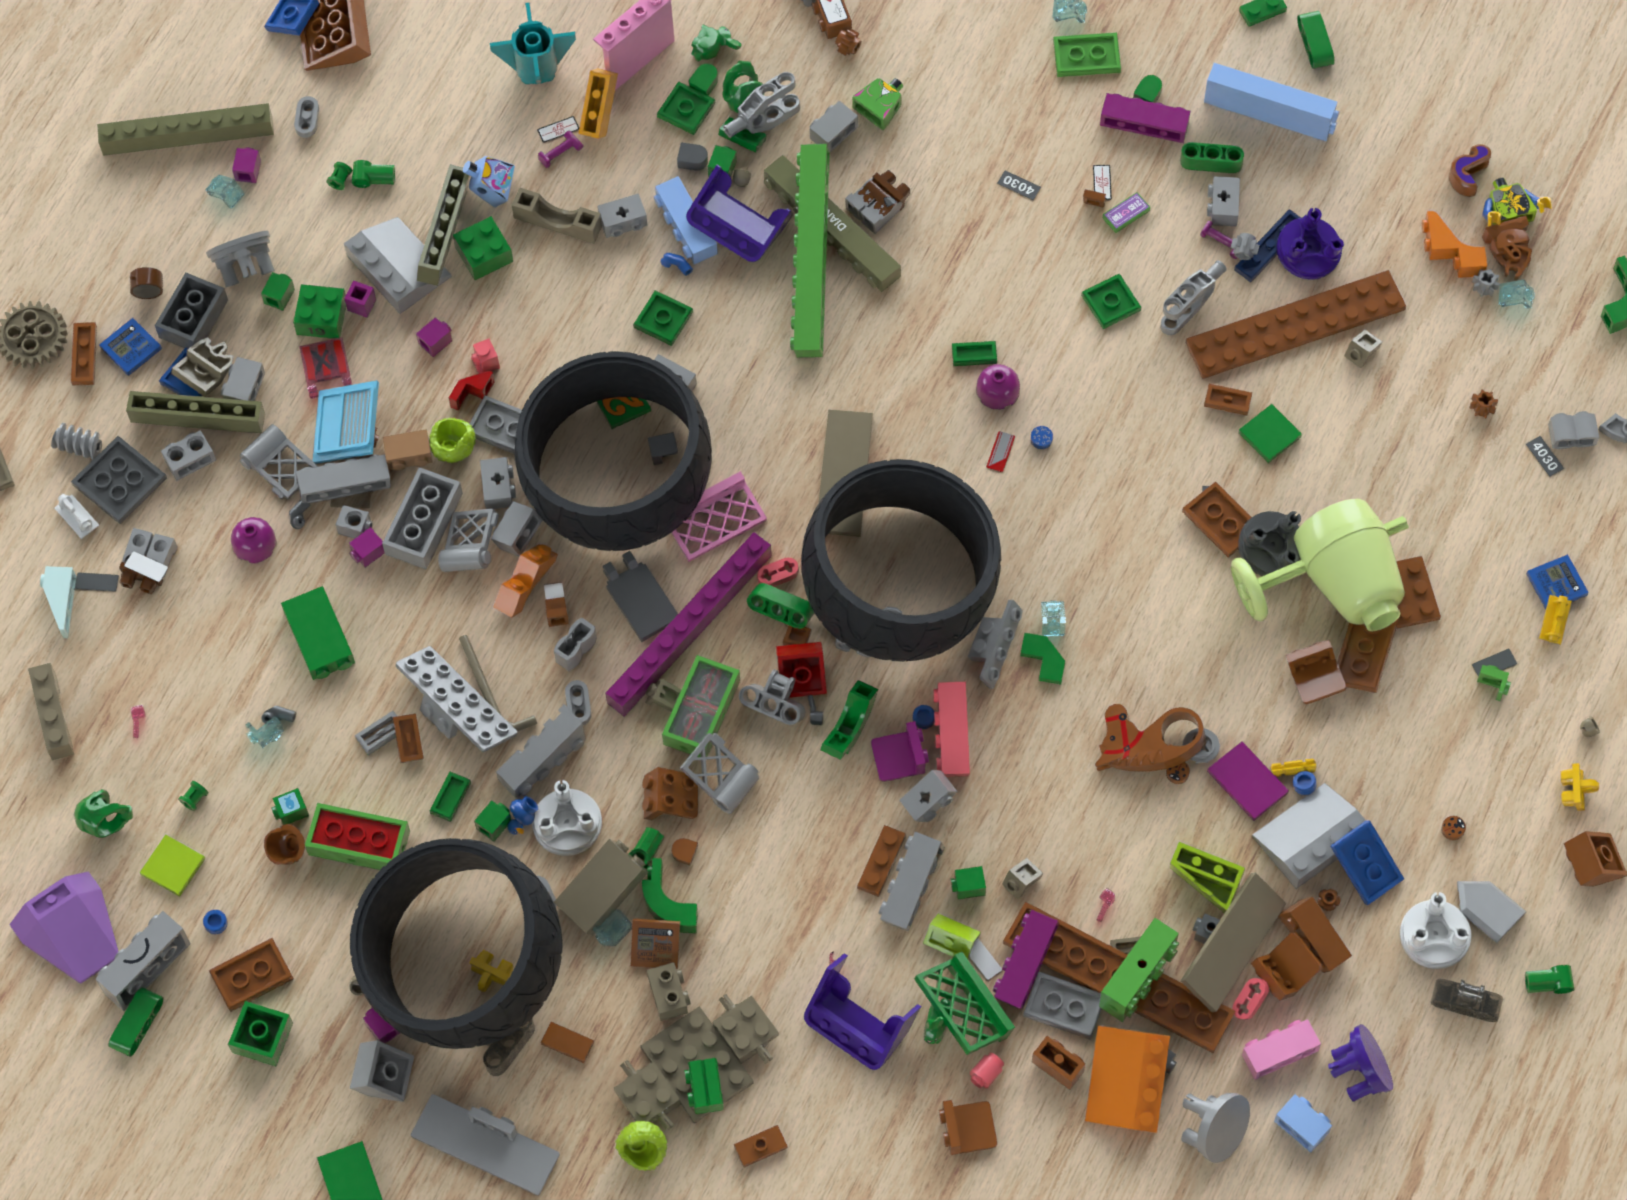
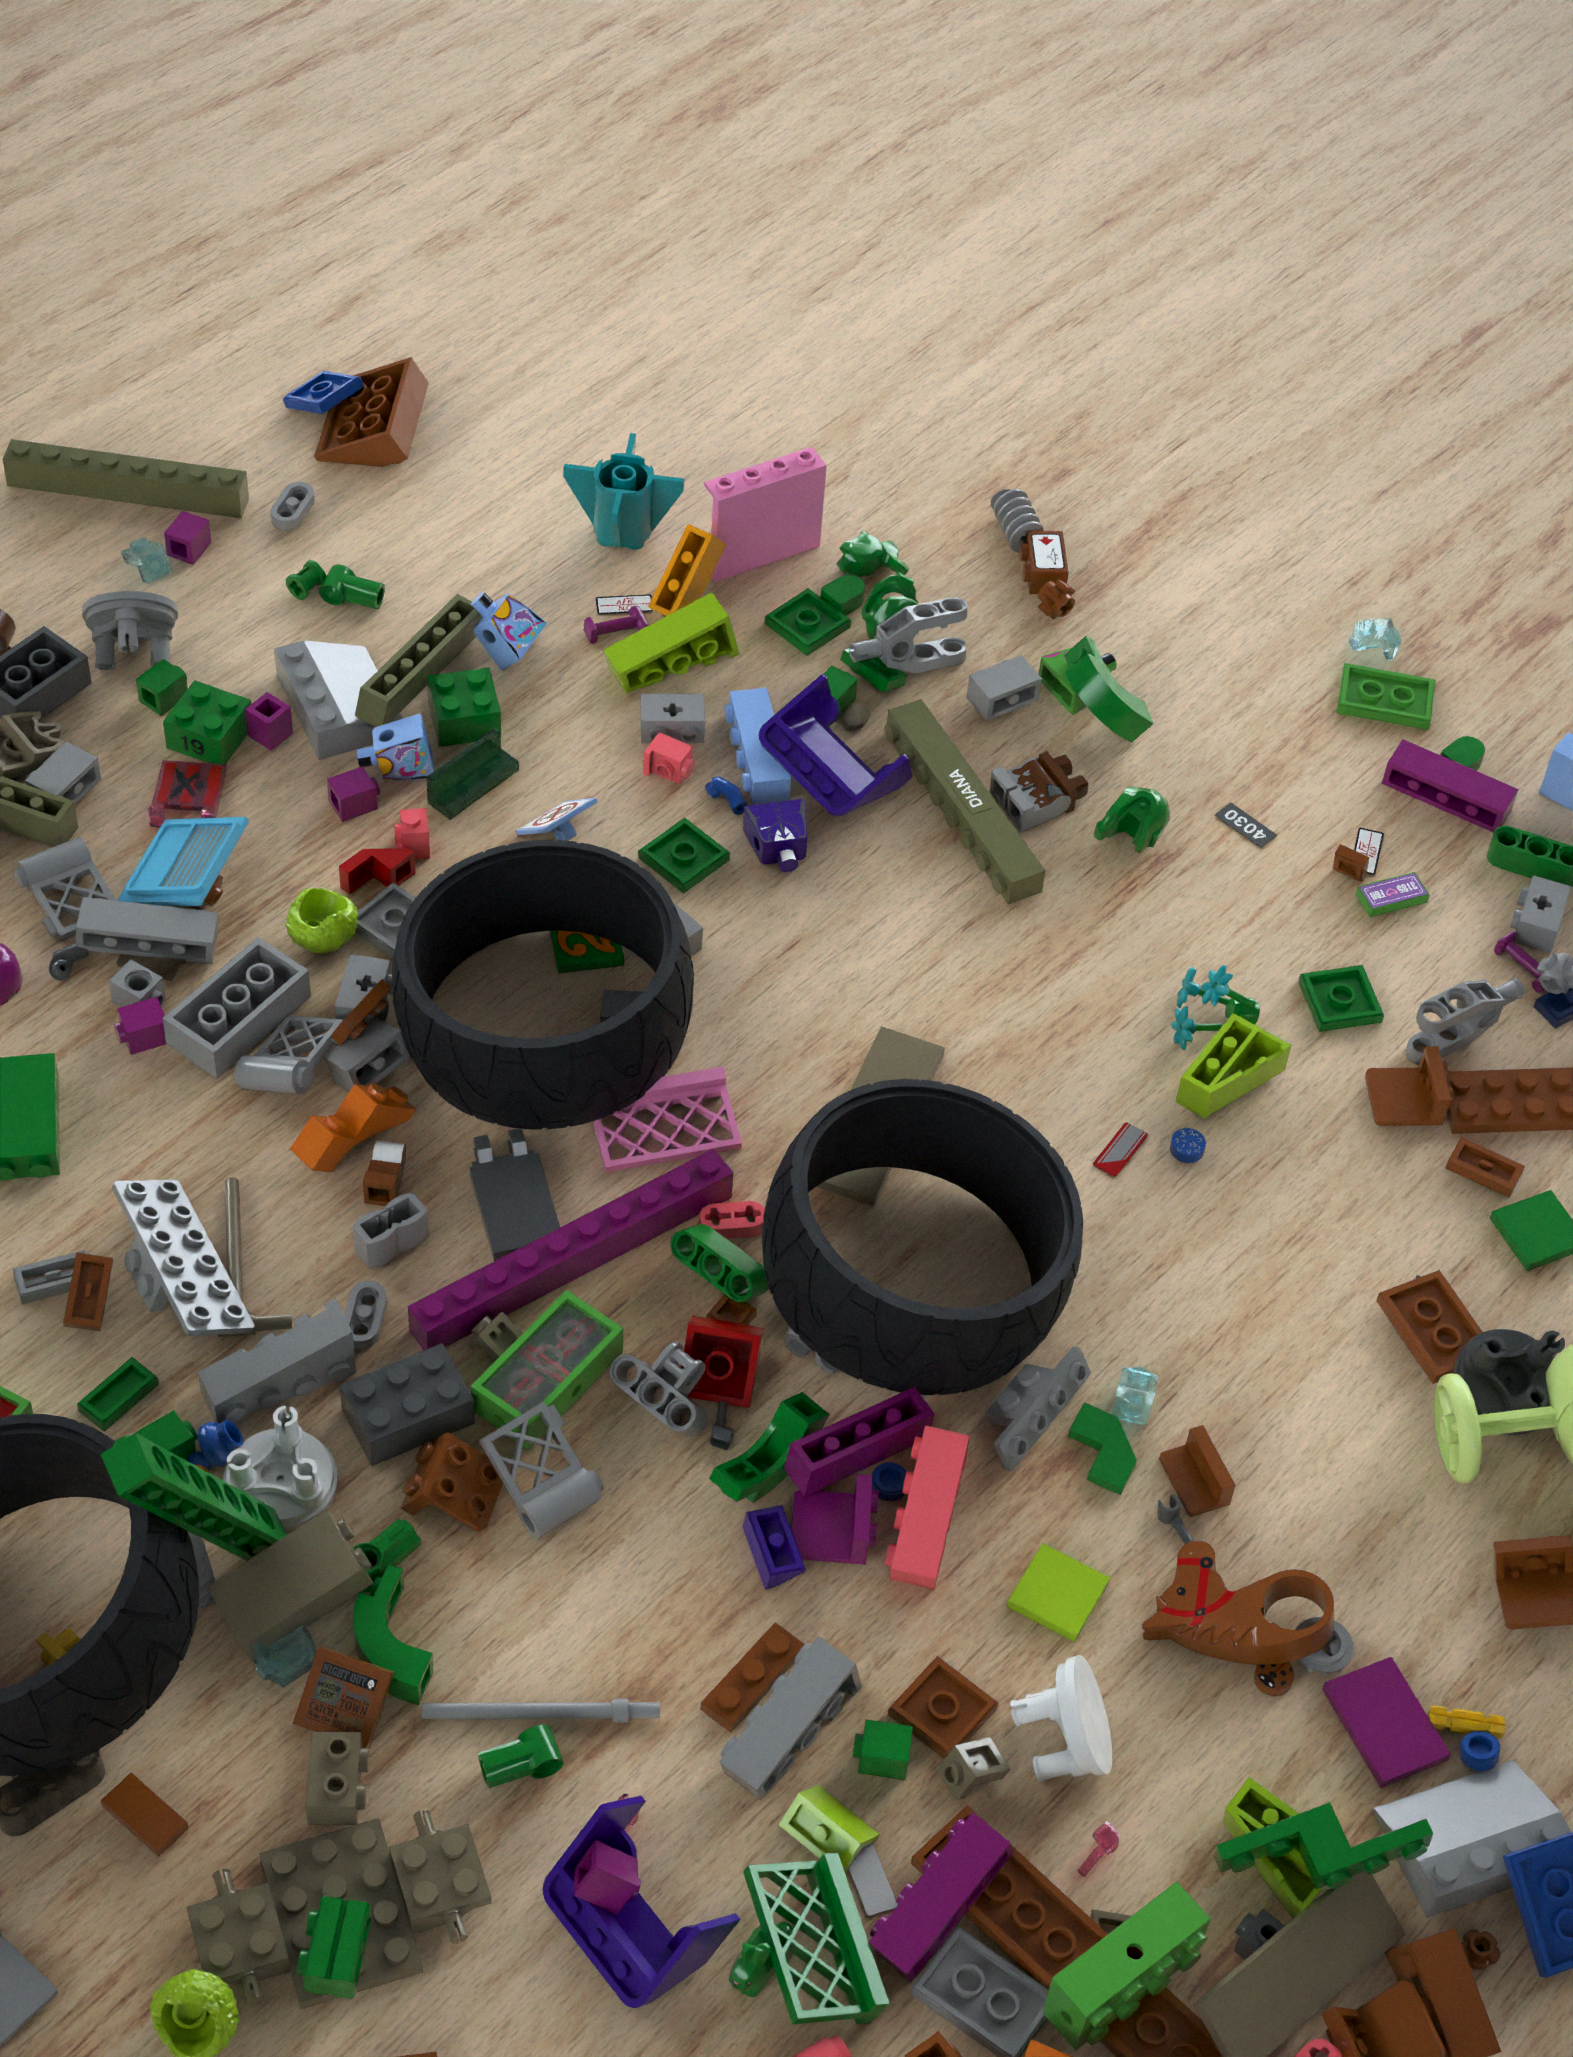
camera: 10 degrees right, 15 degrees down
(407, 450) = (253, 914): medium nougat brick -> none
(454, 296) = (400, 750): none -> light blue torso
(506, 300) = (470, 775): none -> clear green panel
(508, 495) = (354, 1022): none -> dark orange plate
(534, 209) = (552, 679): dark tan arch -> none
(541, 862) = (191, 1497): none -> green brick
(574, 317) = (557, 819): none -> light blue piece
(603, 158) = (673, 644): none -> lime wedge
(625, 753) = (407, 1404): none -> dark grey brick
(630, 248) = (668, 758): none -> coral brick
(684, 850) = (445, 1573): dark orange tile -> none
(692, 156) = (793, 675): dark grey piece -> none
(719, 285) = (777, 832): none -> dark purple torso
(771, 944) = (531, 1754): none -> green piece
(811, 250) = (920, 821): bright green brick -> none
(811, 903) = (619, 1710): none -> light grey bar
(839, 1003) = (606, 1877): none -> magenta brick
(868, 778) = (773, 1546): none -> dark purple slope
(900, 117) = (1103, 694): none -> green arch
(900, 700) = (857, 1441): none -> magenta brick
(917, 799) = (859, 1595): light grey brick -> none
(949, 202) = (1139, 813): none -> green helmet
(974, 353) = (1119, 1012): green tile -> none
(994, 847) = (943, 1707): none -> dark orange tile
(998, 386) = (1142, 1061): magenta cylinder -> none
(1041, 757) = (1058, 1592): none -> lime tile
(1050, 332) = (1214, 992): none -> teal plant
(1055, 375) = (1231, 1066): none -> lime wedge
(1075, 832) = (1081, 1716): none -> white piece
(1096, 691) = (1172, 1517): none -> dark grey hand
(1103, 658) = (1198, 1474): none -> dark orange panel
(1170, 360) = (1411, 1094): none -> dark orange bracket
(1230, 871) = (1324, 1847): none -> green bracket

